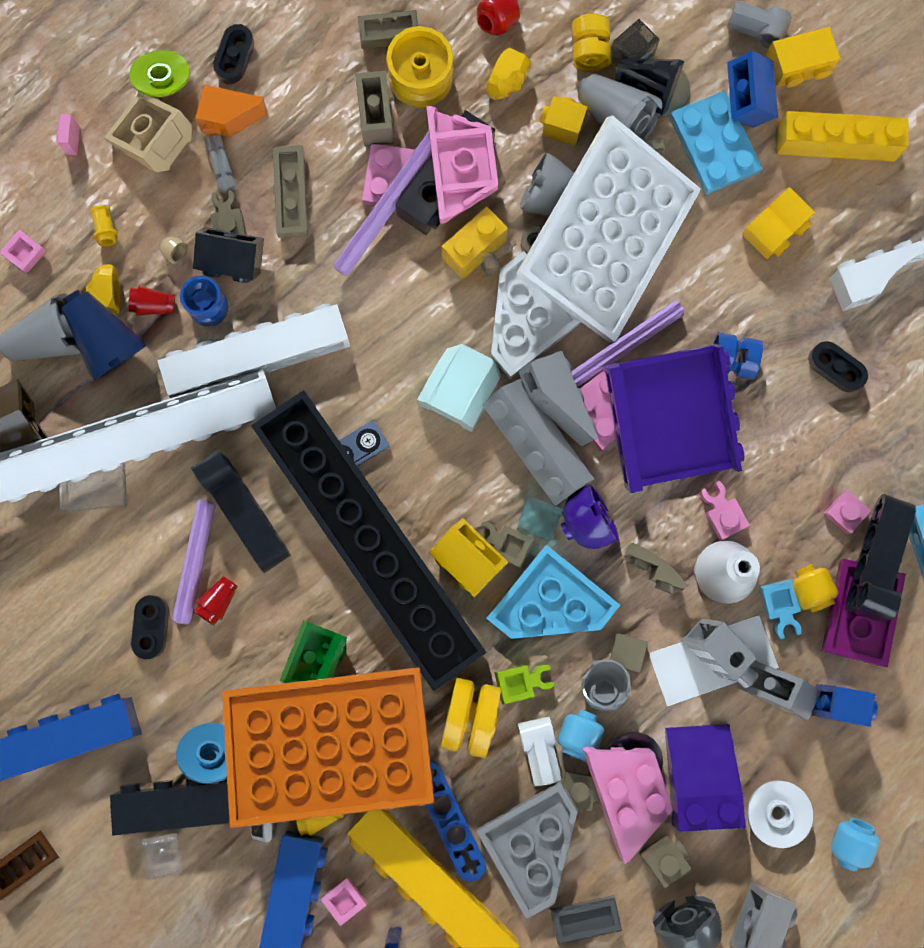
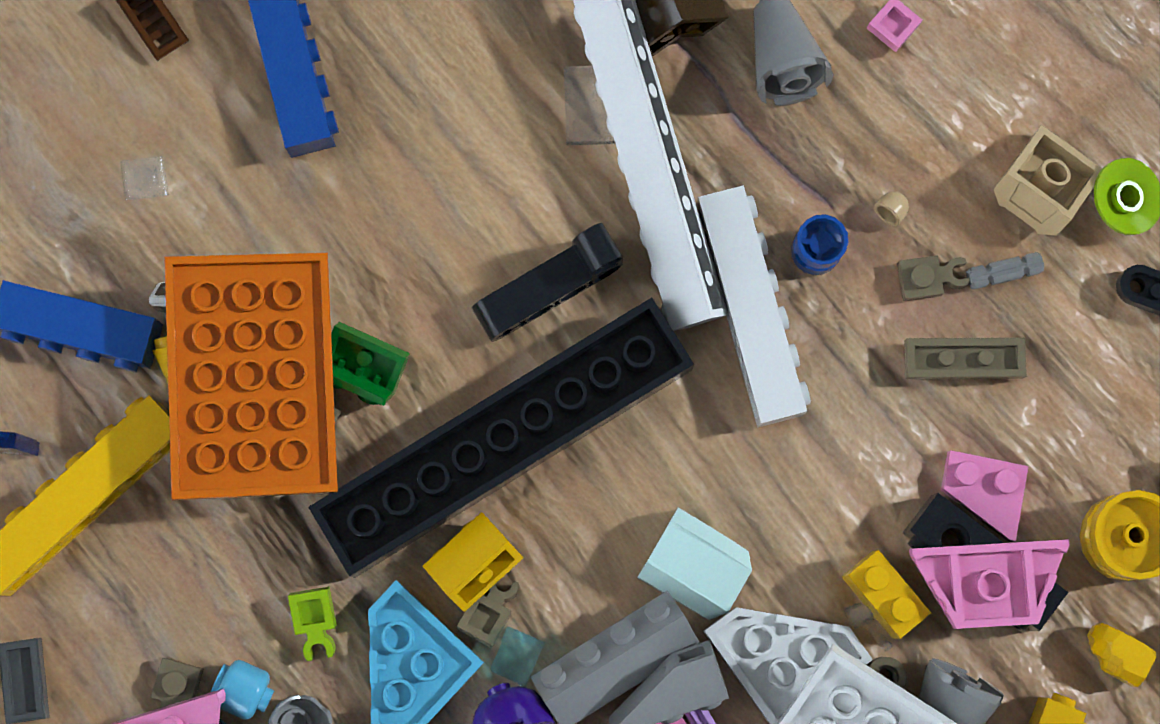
camera: 95 degrees right, 0 degrees up
(68, 134) = (1048, 80): bright pink tile -> none
(99, 333) = (777, 116): dark blue cone -> none
(104, 230) = (925, 122): yellow pin -> none
(106, 287) = (838, 121): yellow rock -> none
(150, 301) = (823, 178): red cone -> none
(152, 627) = (415, 170): black plate -> none
(168, 806) = (202, 188): black brick -> none
(193, 562) = (492, 223): lavender axle -> none
(196, 746) = (268, 218): dark azure dish -> none
(215, 601) = (441, 249): red cone -> none
(228, 111) = (1075, 281): orange slope -> none
(228, 254) = (880, 276): black brick -> none
(344, 901) = (74, 388): bright pink plate -> none
(365, 443) = (629, 439): tile -> none
(374, 108) = (1074, 472): dark tan brick -> none
(383, 208) = (936, 478): lavender axle -> none
(451, 818) = (158, 526): blue beam -> none
(471, 717) = (273, 553): yellow wheel -> none
(532, 846) = (115, 620): light grey plate -> none
(539, 742) = (237, 636): white piece -> none

